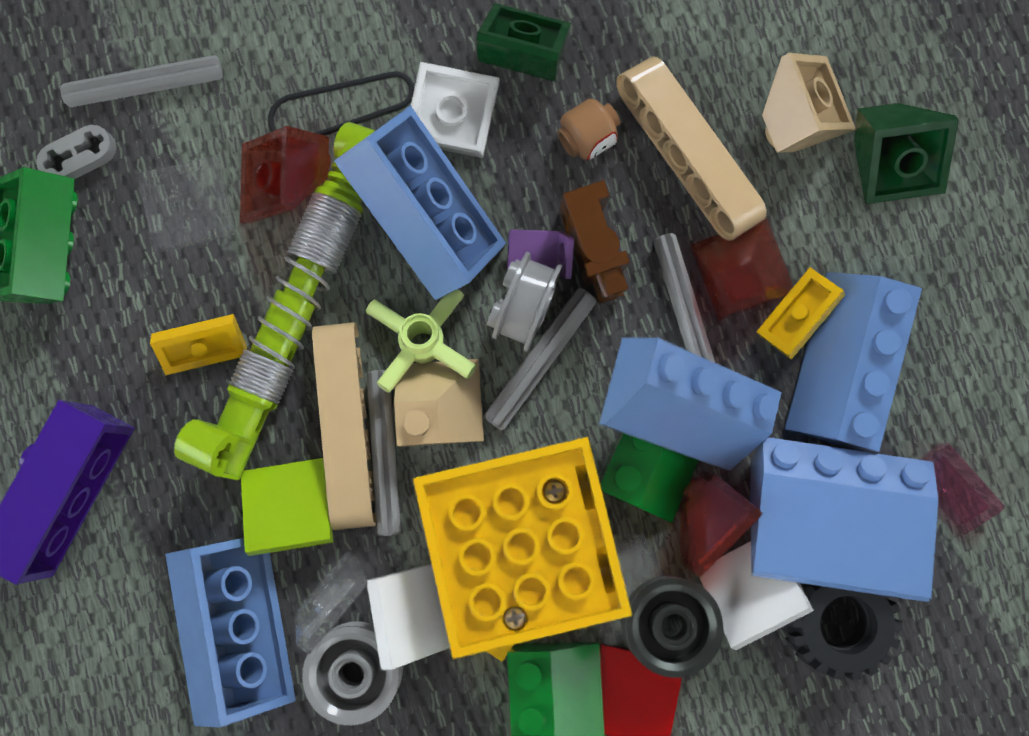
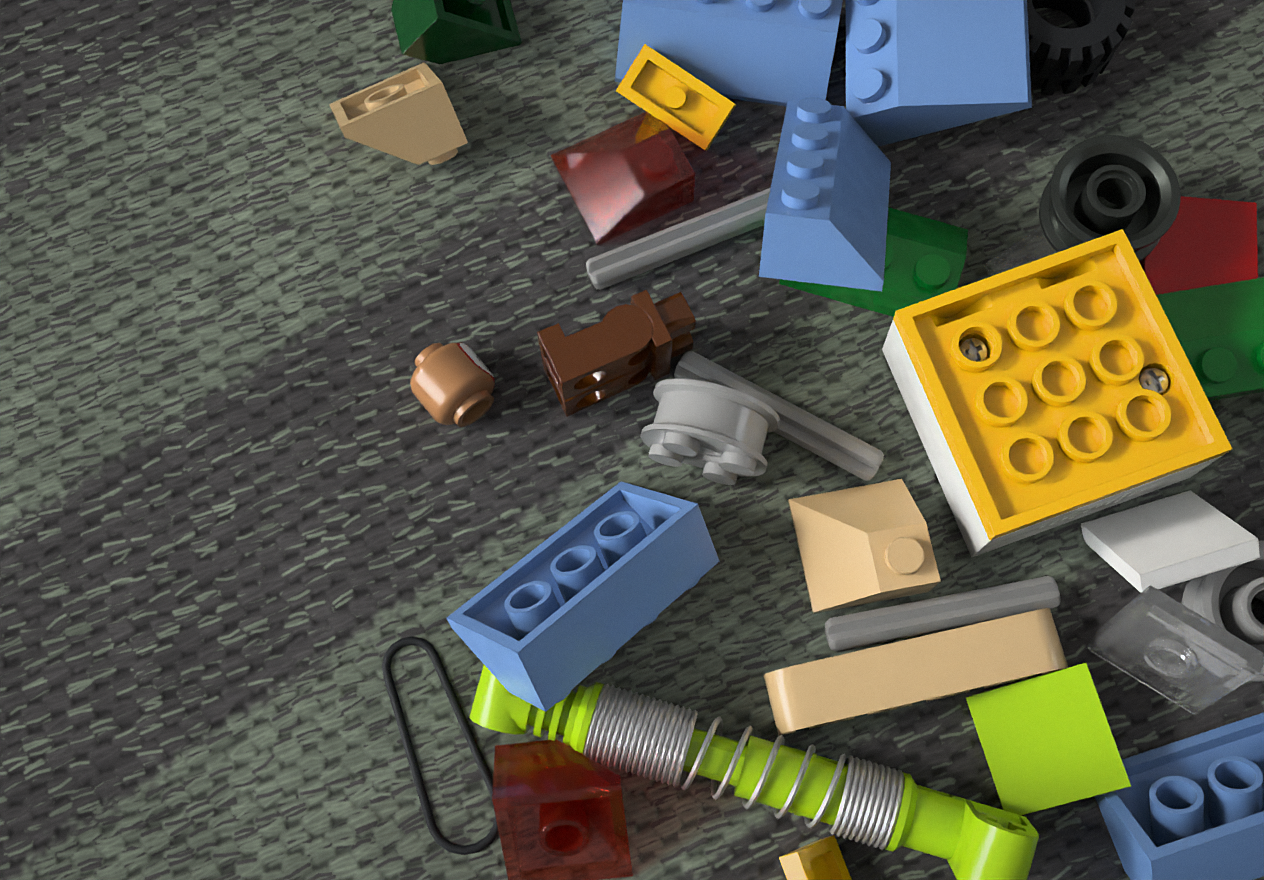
camera: 90 degrees left, 10 degrees down
(420, 353) = (798, 586): yellowish green bar -> none
(455, 107) = (430, 572): white tile -> none
(522, 41) = (330, 484): dark green slope -> none
(545, 248) = (623, 420): medium lavender bracket -> none
(691, 148) = (467, 250): tan beam -> none
(711, 521) = (970, 168): clear red slope -> none
(751, 603) = (1062, 114): white tile -> none

